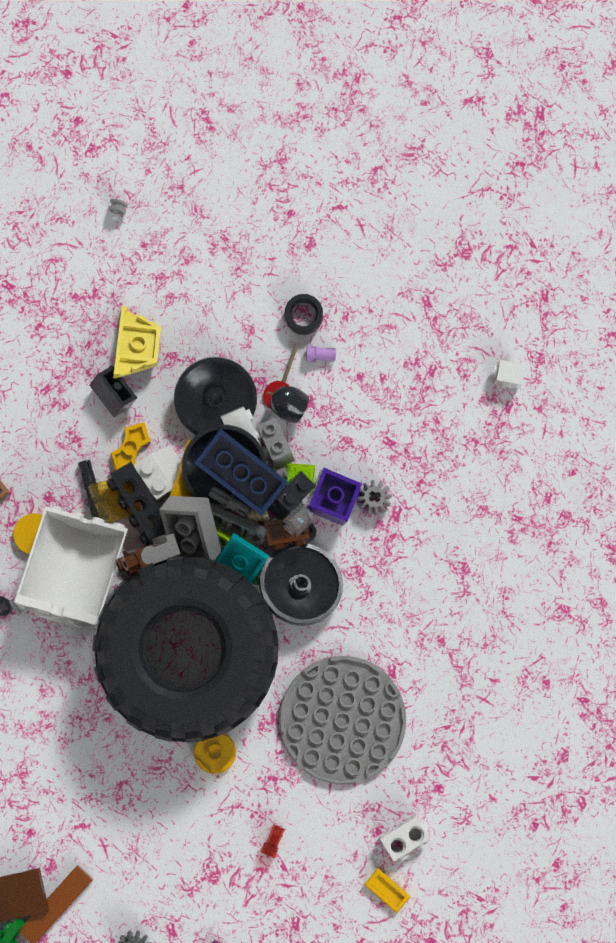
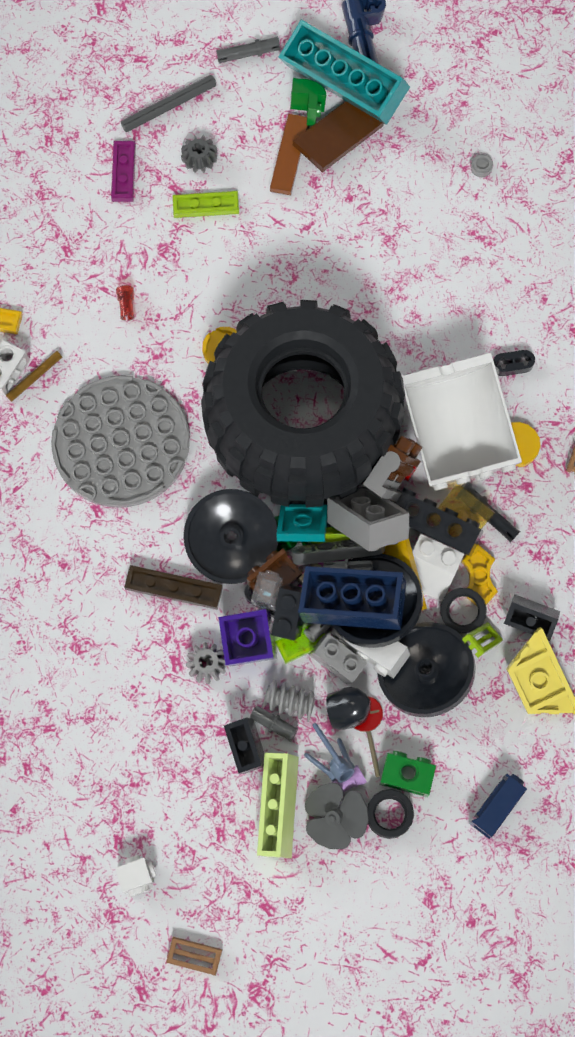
camera: 150 degrees right, 10 degrees down
(154, 898) = (205, 204): none -> lime tile
(164, 411) = (465, 592): none -> black tyre
(169, 394) = (476, 644): none -> lime tile
(223, 275) = (498, 805): none -> dark blue window
(267, 322) = (393, 777): none -> green brick
(320, 362) = (340, 768): none -> sand blue plant
(328, 434) = (289, 699): none -> light grey piece
(342, 330) = (338, 823): none -> dark grey piece
(349, 425) = (274, 723): none -> dark grey axle
(366, 571) = (173, 587): none -> dark brown plate
(379, 418) = (245, 745): none -> black brick
(380, 363) = (277, 805): none -> yellowish green brick
(383, 818) = (35, 375): none -> pearl gold bar
(490, 304) = (173, 950): none -> medium nougat tile

